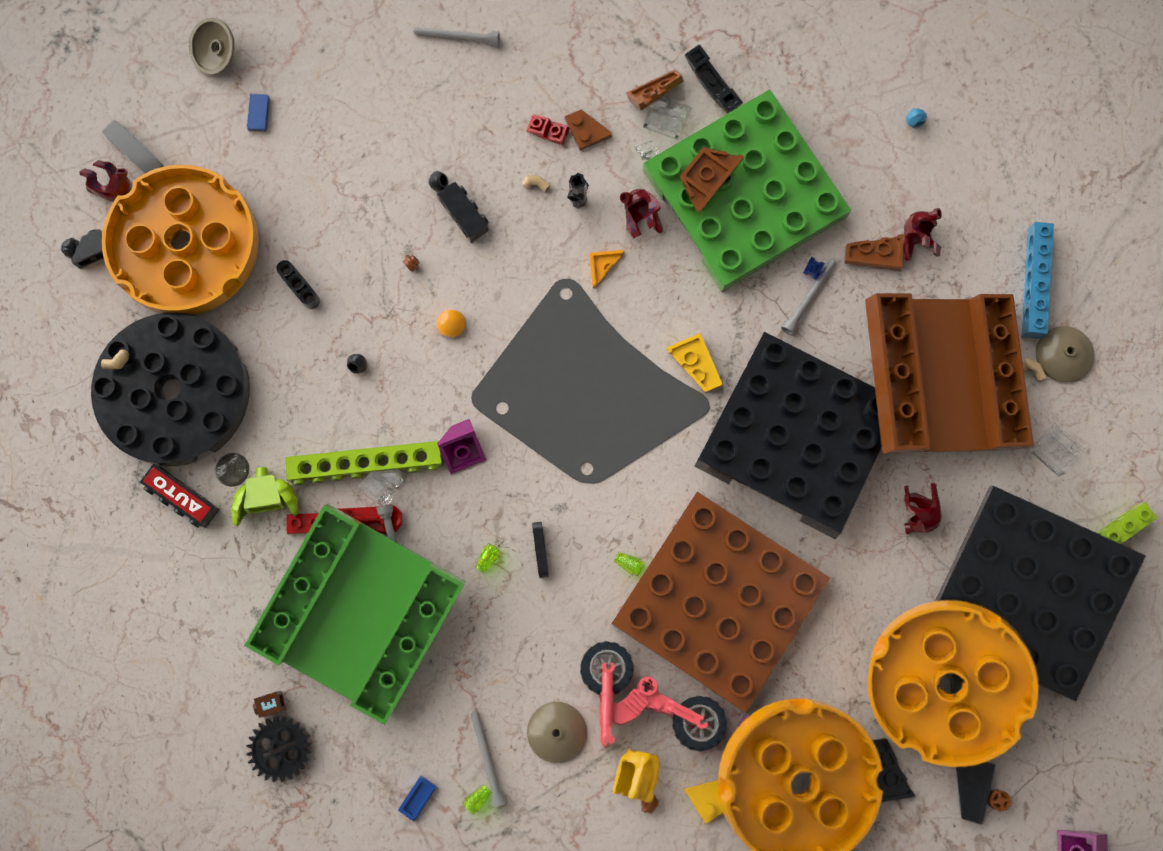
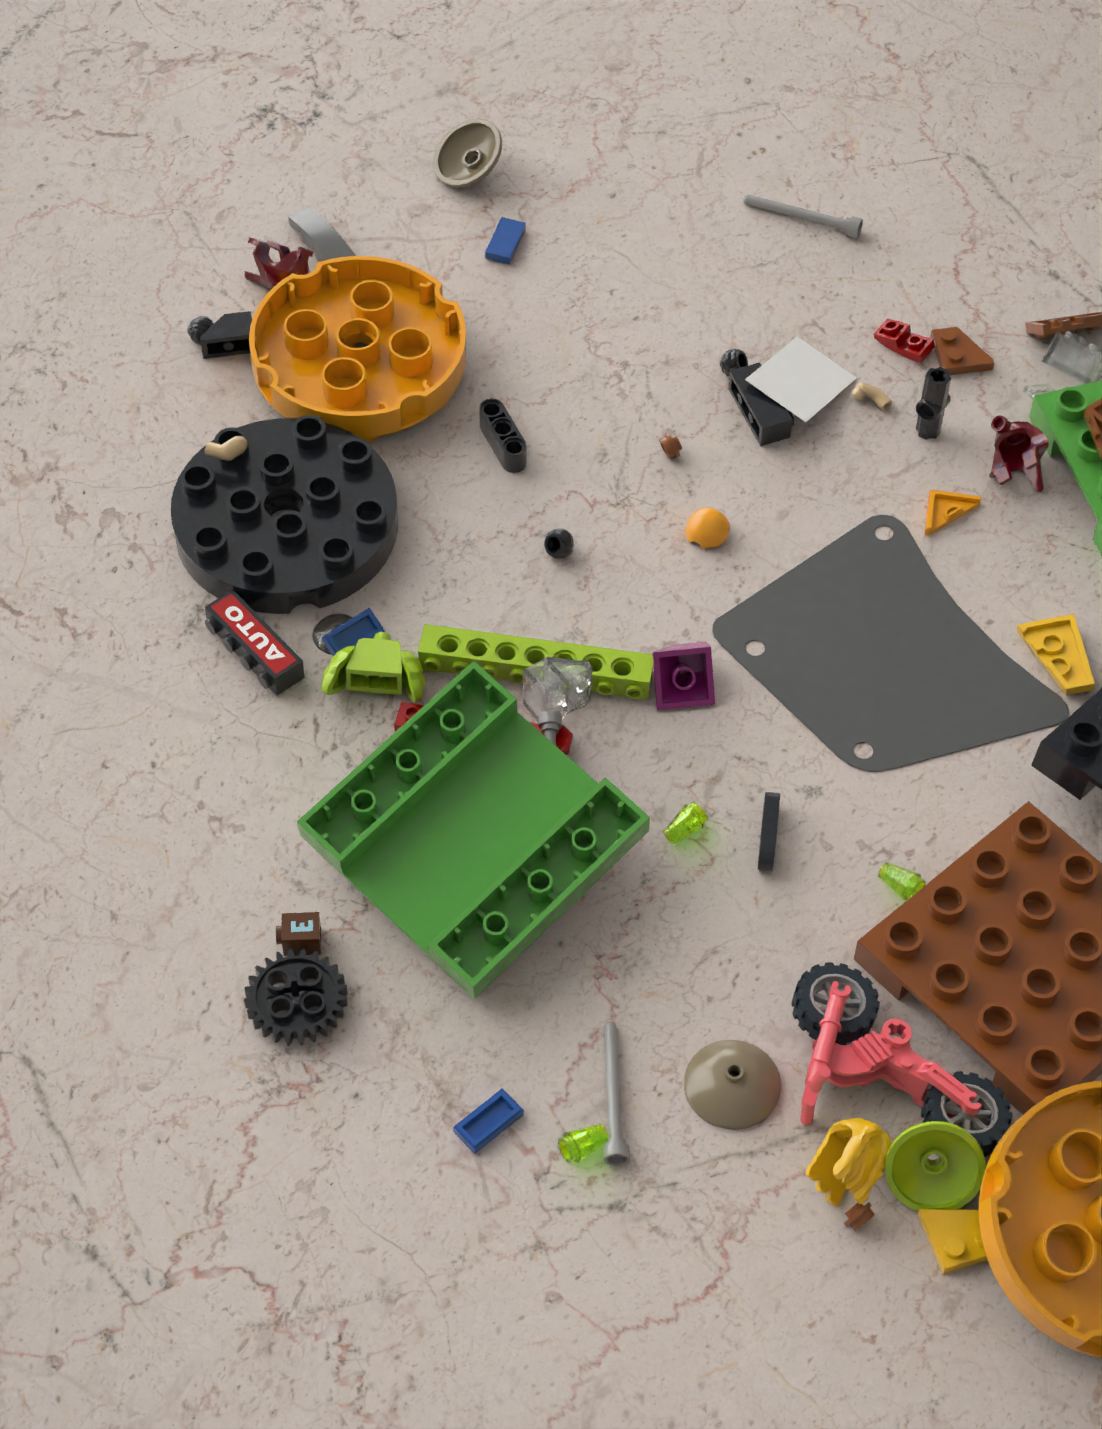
camera: 10 degrees right, 25 degrees down
(241, 471) = (347, 634): none -> blue tile
(485, 185) = (801, 379): none -> white sticker
(688, 768) = (936, 1183): none -> lime dish

